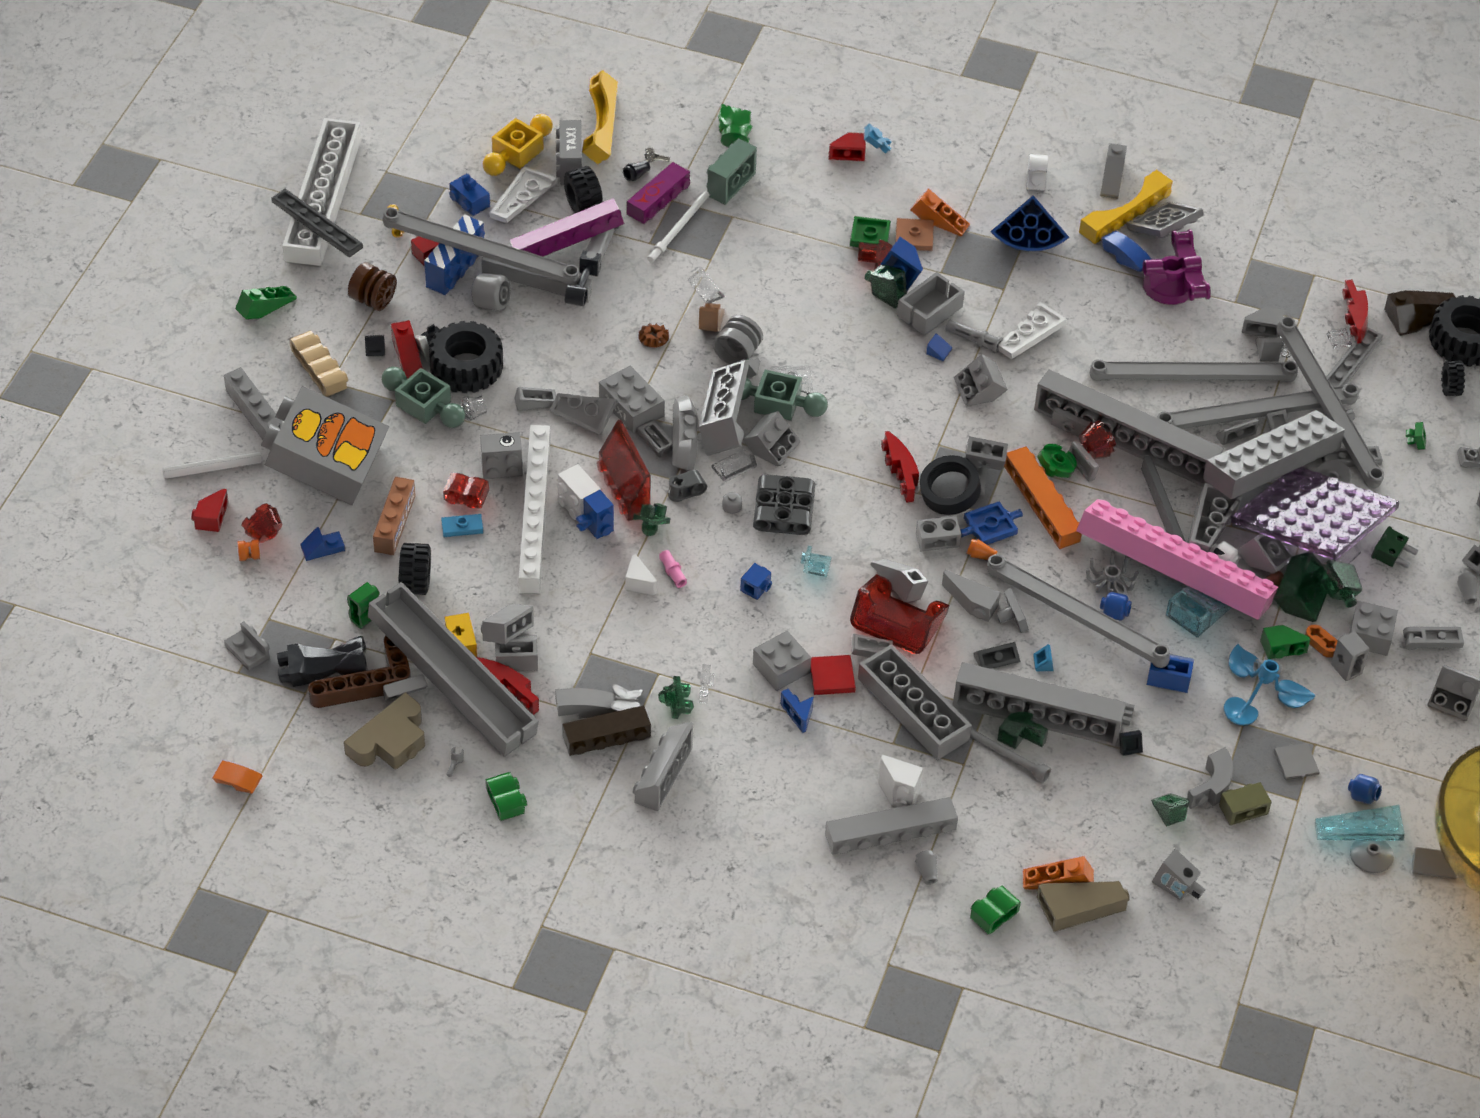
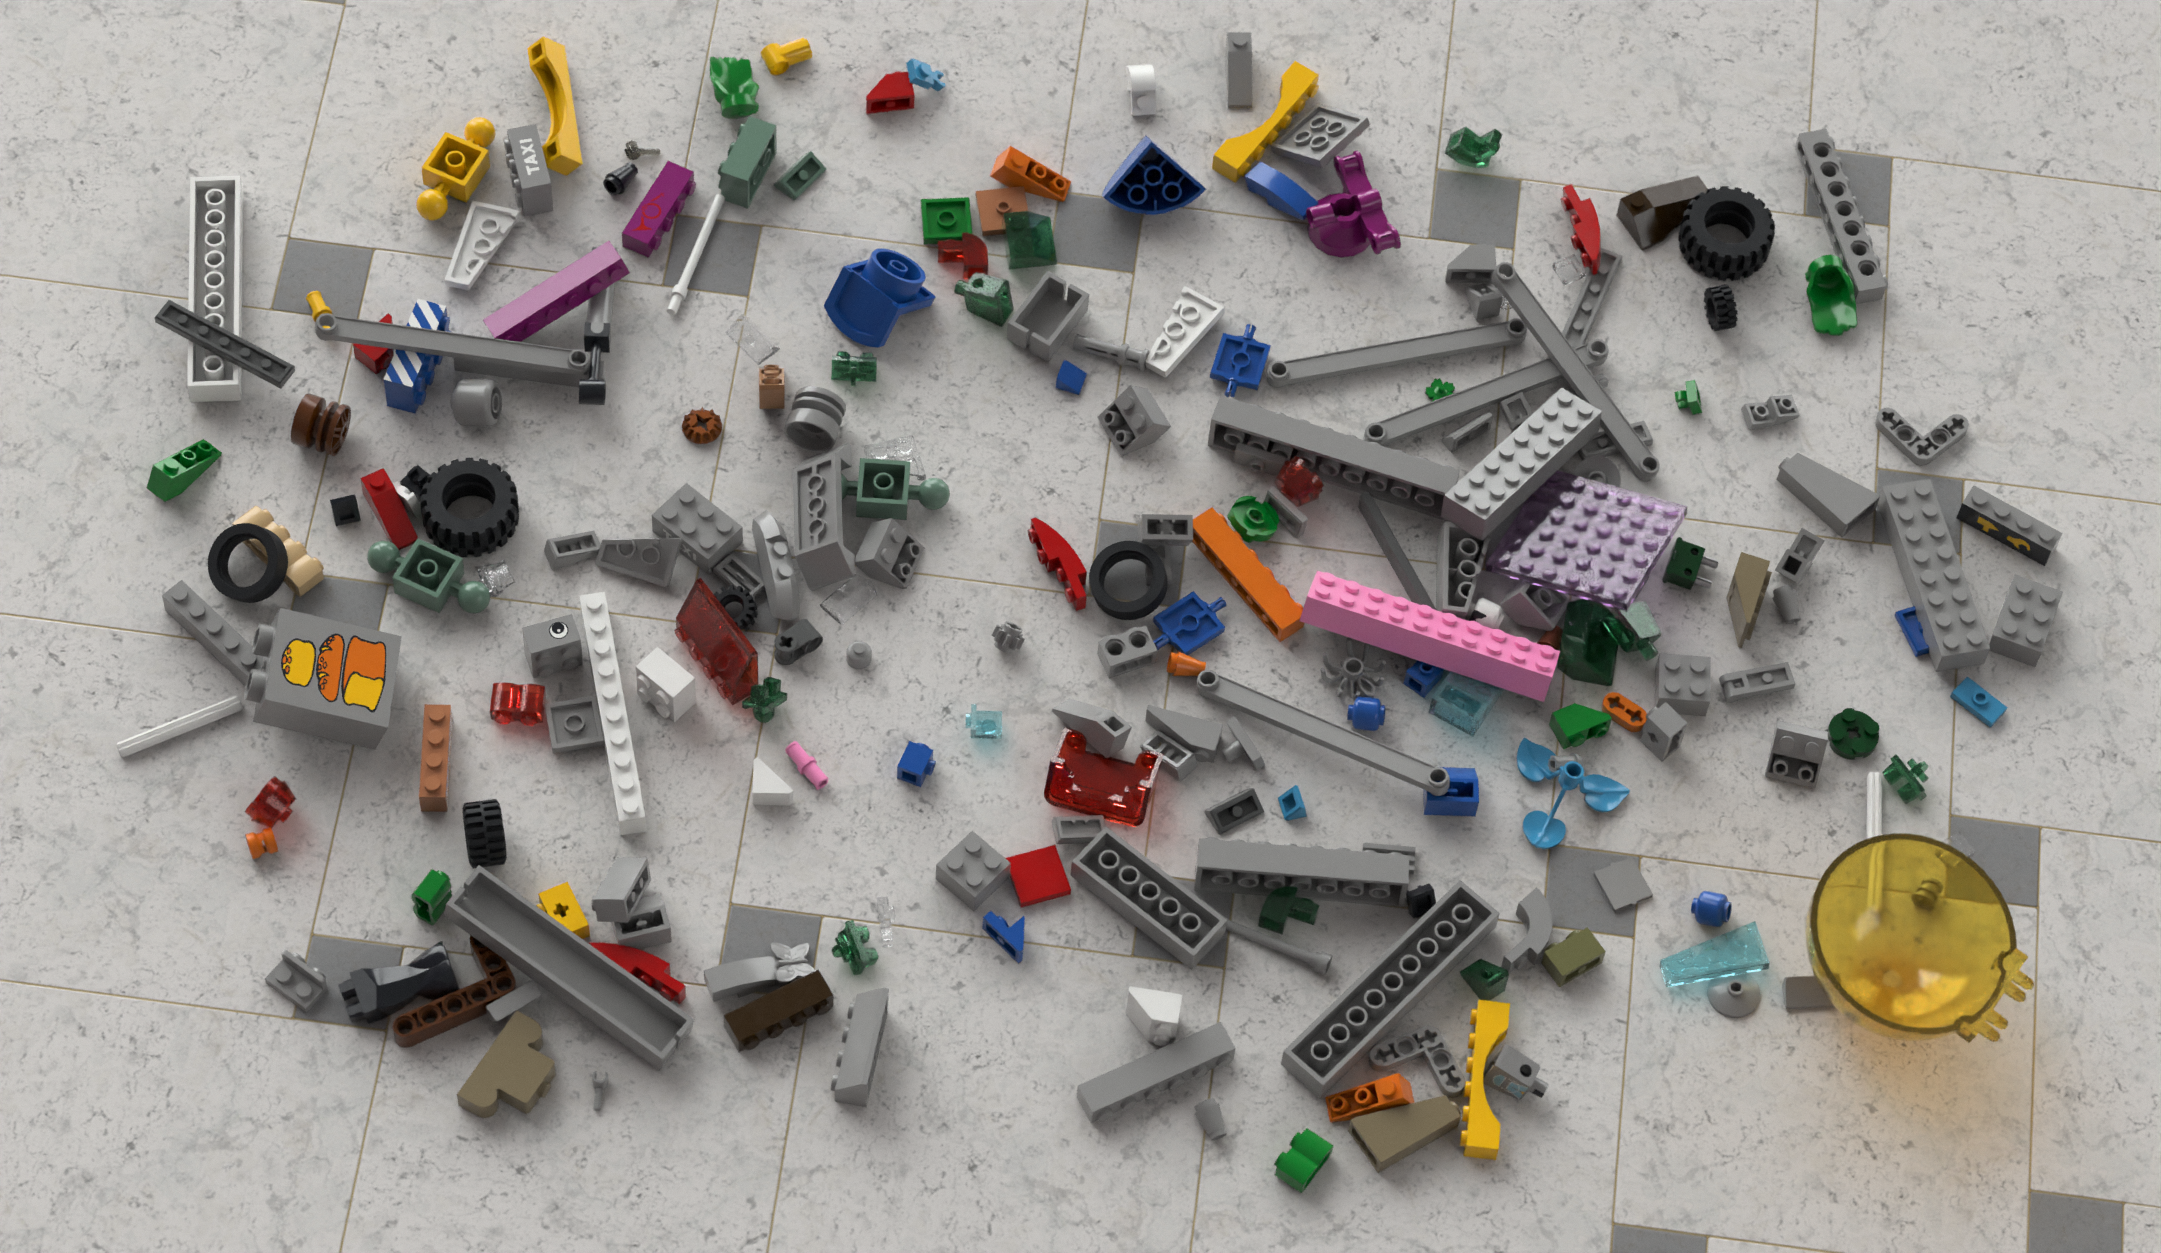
camera: 15 degrees left, 10 degrees up
(210, 511) = (197, 796): red slope -> none
(238, 776) = (334, 1166): orange slope -> none
(279, 351) = (273, 575): none -> black tyre
(321, 545) = (353, 816): blue slope -> none
(462, 525) = (524, 753): dark azure plate -> none
(469, 194) = (410, 257): blue brick -> none
(503, 512) = (574, 724): none -> light grey plate
(505, 796) = (675, 1126): green brick -> none
(582, 189) = (562, 229): black tyre -> none
(597, 515) = (695, 710): blue brick -> none
(652, 447) = (745, 599): none -> black tyre
(769, 189) = (800, 176): none -> sand green slope
(773, 113) = (779, 57): none -> yellow piece
(776, 315) = (854, 367): none -> clear green hips
(784, 504) = (909, 664): dark grey connector -> none
(800, 267) = (874, 295): none -> blue piece
(848, 508) = (1008, 637): none -> light grey gear
(904, 257) = (1002, 260): blue slope -> none
(931, 251) = (1028, 240): none -> clear green slope
(959, 612) = (1181, 765): none -> light grey slope
(1071, 356) = (1240, 361): none -> blue plate
(1091, 799) = (1389, 989): none -> light grey brick
(1112, 850) = (1427, 1051): none -> light grey beam
(1145, 912) = (1482, 1127): none -> yellow arch
(1165, 588) = (1422, 677): none -> blue brick
(1220, 399) = (1439, 390): none -> green plant
(1280, 248) = (1473, 150): none -> clear green brick
(1436, 572) = (1747, 594): none -> dark tan slope

